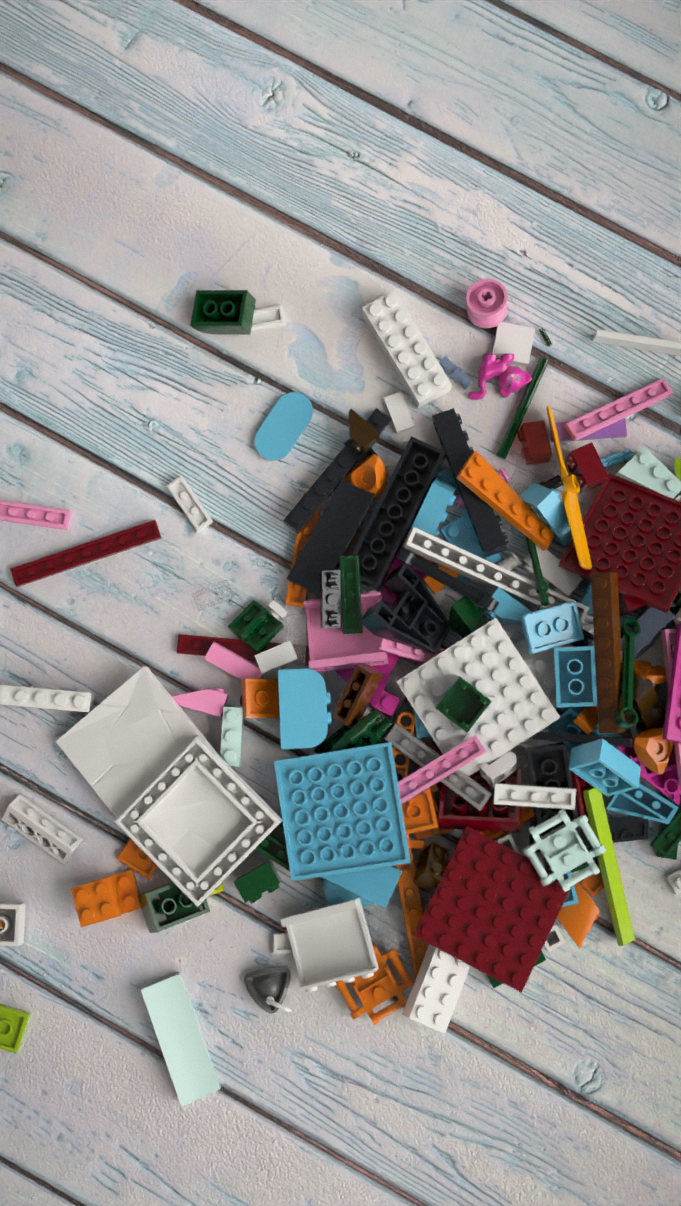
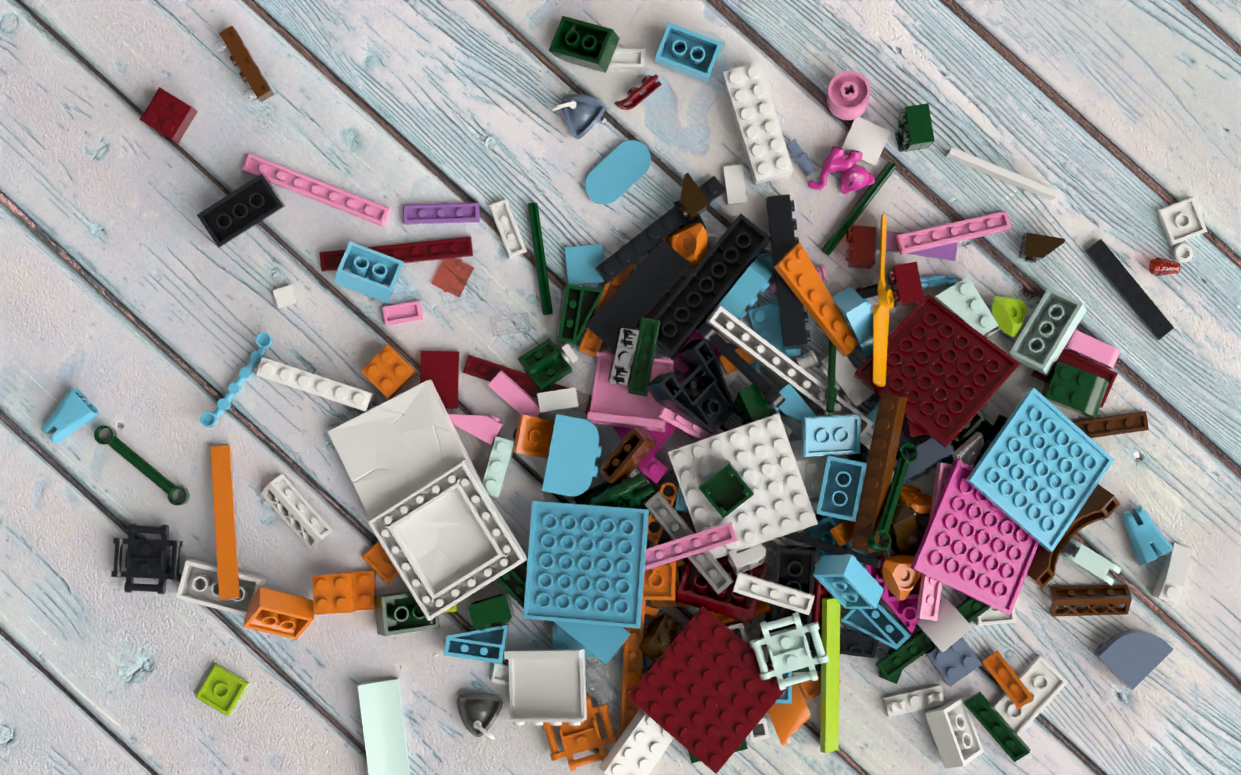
camera: 20 degrees right, 5 degrees up
(45, 935) = (279, 613): none -> orange slope
(62, 576) = (368, 272): none -> medium azure slope
(103, 668) = (388, 371): none -> orange brick
(104, 608) = (402, 312): none -> bright pink tile
(121, 504) = (441, 213): none -> medium lavender tile
(146, 562) = (452, 276): none -> clear red piece
(158, 656) = (443, 370): none -> dark red tile
(227, 526) = (540, 258): none -> dark green axle
(234, 378) = (580, 113): none -> sand blue hat
(253, 919) = (478, 645): none -> medium azure wedge
(269, 521) = (582, 263): none -> medium azure tile
(273, 566) = (575, 311): none -> dark green wedge
(282, 348) = (634, 93): none -> dark red piece
(324, 298) = (688, 52): none -> medium azure brick
(558, 318) = (916, 127): none -> dark green brick

